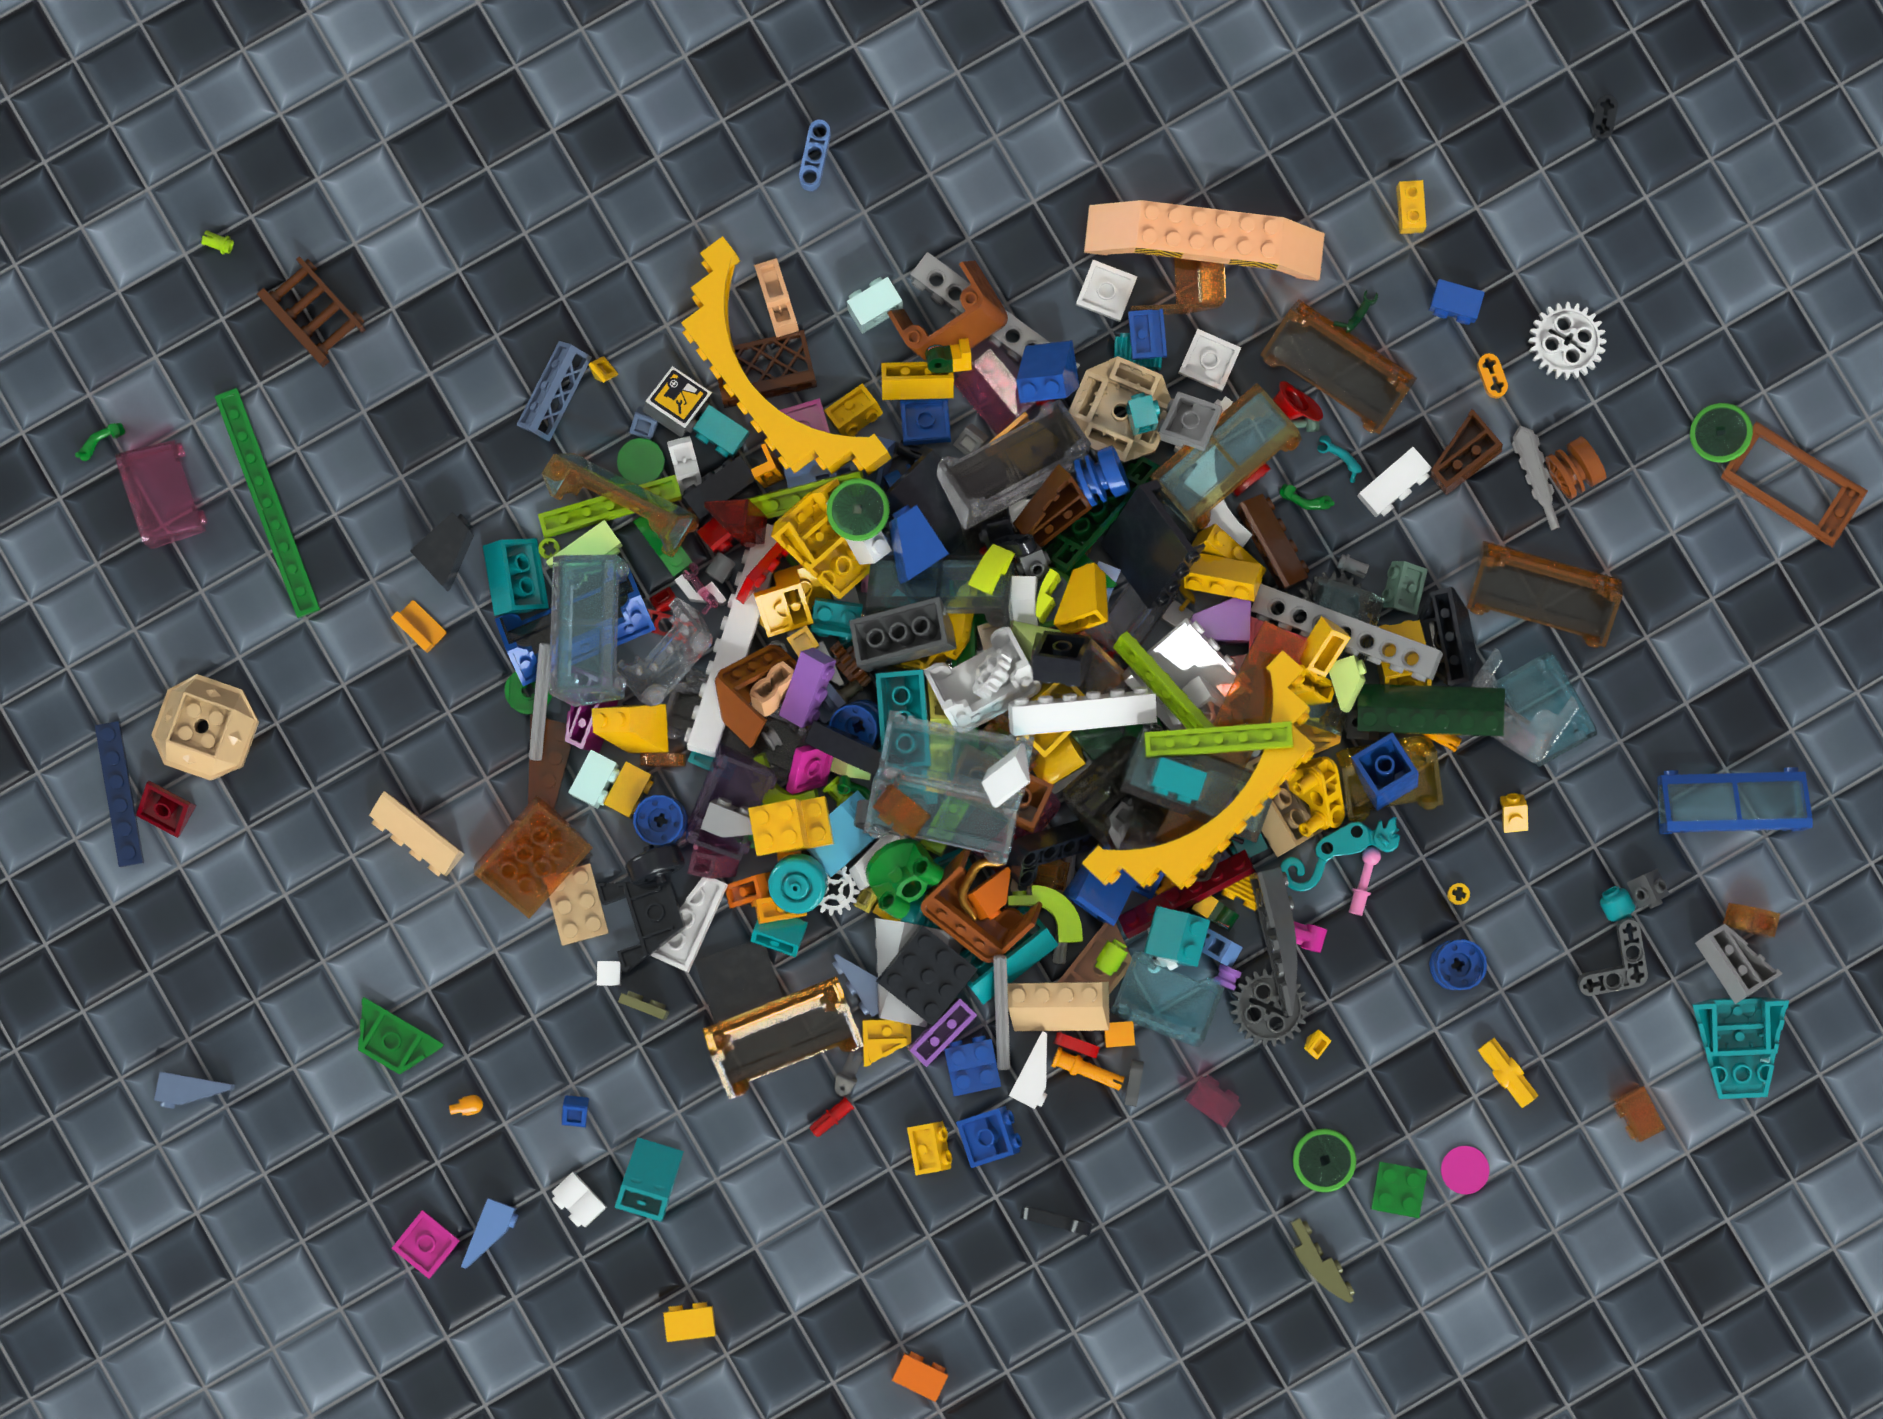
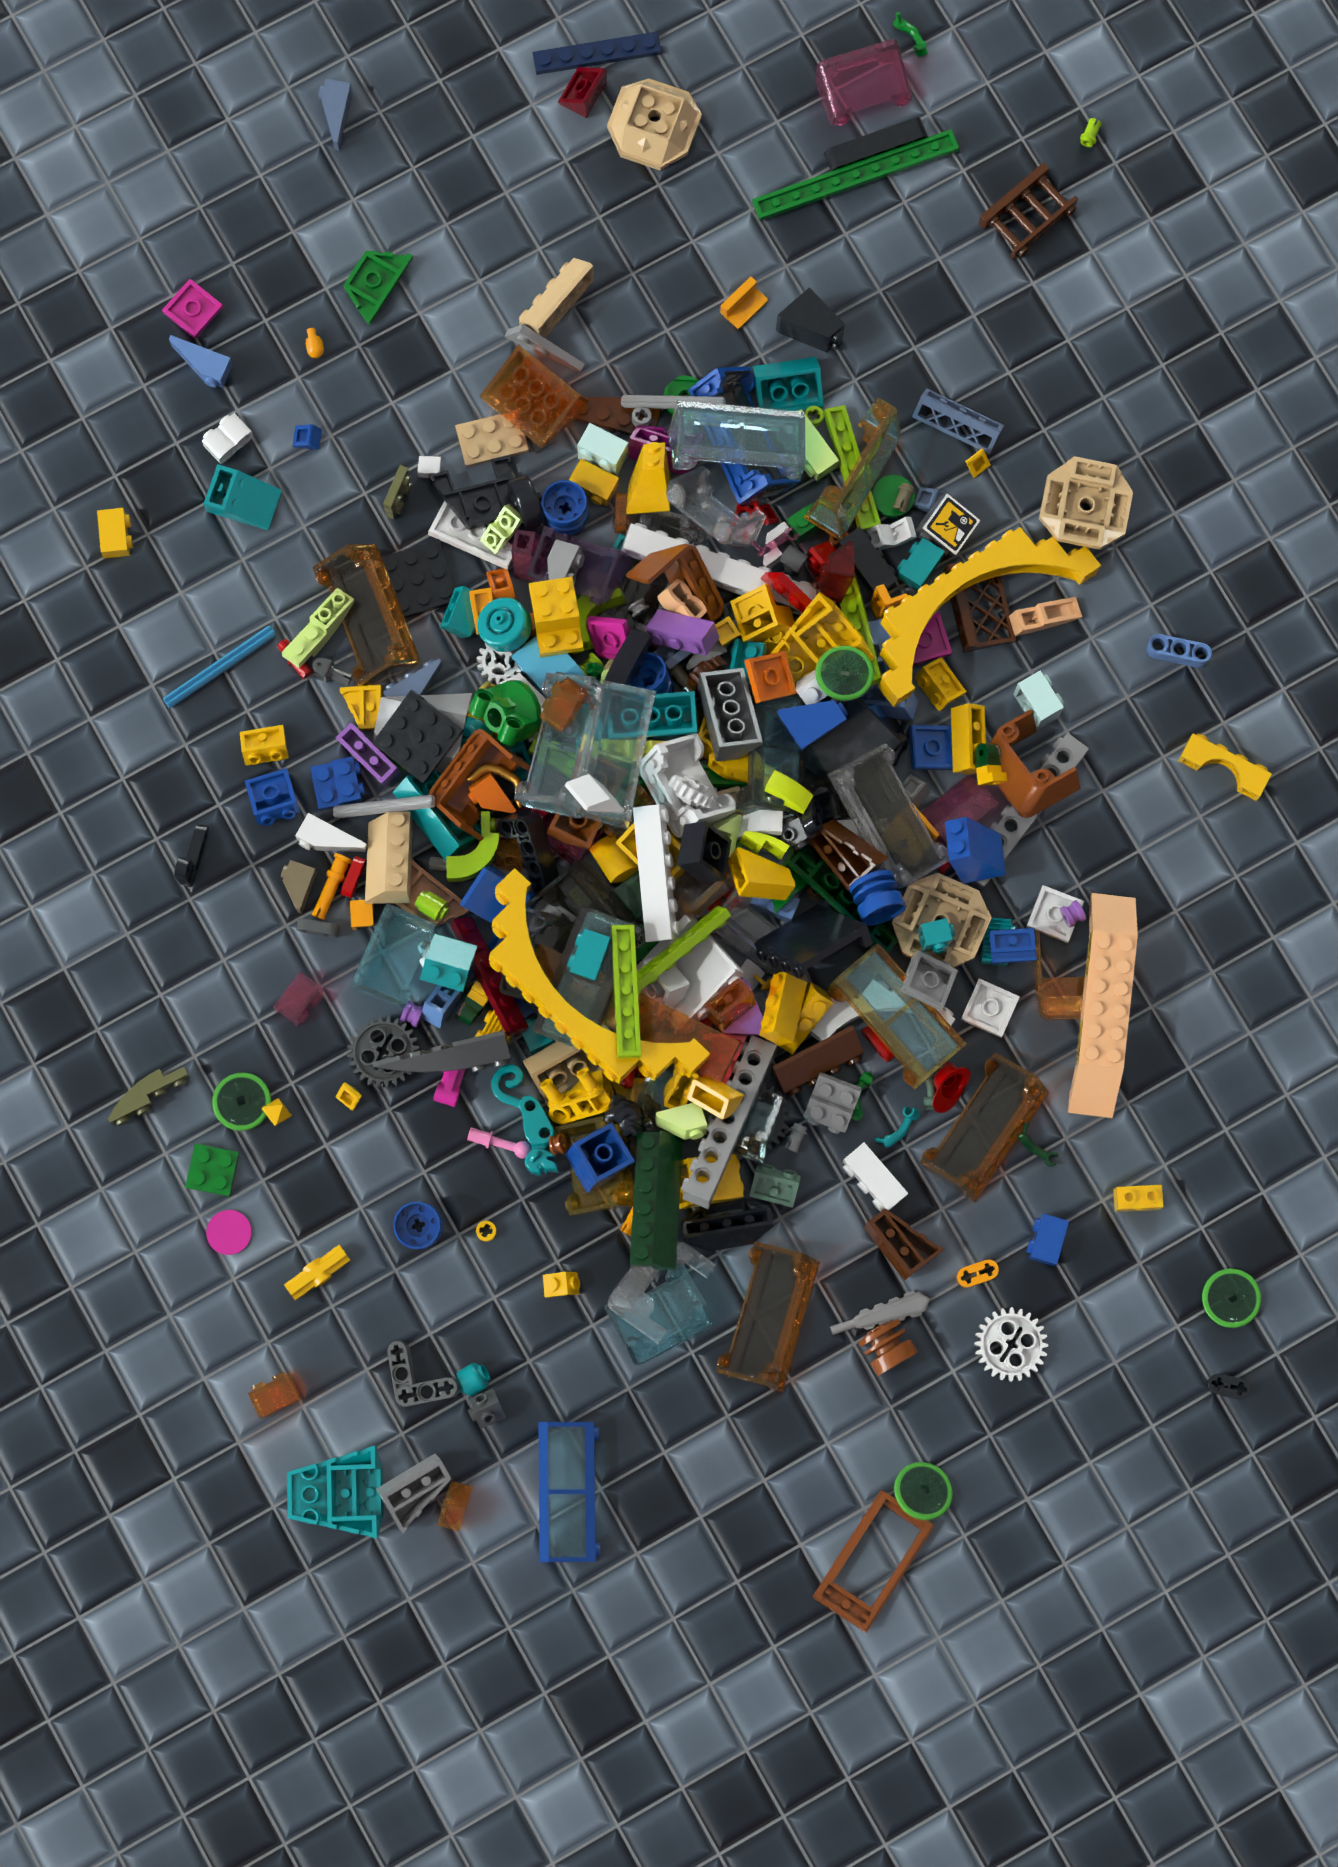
camera: 90 degrees right, 5 degrees down
(232, 480) = (875, 143): none -> black beam
(472, 849) = (541, 346): none -> light grey wing
(549, 742) = (636, 413): none -> light grey bush
(645, 450) = (903, 497): none -> dark tan pin
(648, 227) = (1090, 483): none -> tan piece
(686, 889) = (502, 529): none -> yellowish green slope
(799, 1090) = (320, 628): none -> yellowish green slope
(841, 1200) = (219, 666): none -> dark azure axle
(861, 590) = (770, 677): none -> orange plate
(920, 1376) = (58, 733): orange brick -> none
(956, 82) = (1250, 778): none -> yellow arch
(1084, 1105) = (298, 882): none -> dark tan slope
(1109, 270) = (1072, 913): none -> medium lavender wheel
(1223, 631) = (730, 1004): none -> clear orange brick
(1317, 527) = (832, 1103): none -> light grey plate
(1335, 1121) = (276, 1111): none -> yellow slope
(1341, 742) = (626, 1113): none -> black hair
(1369, 816) = (558, 1144): none -> dark orange bush
(1525, 104) = (1243, 1288): none -> clear green wheel

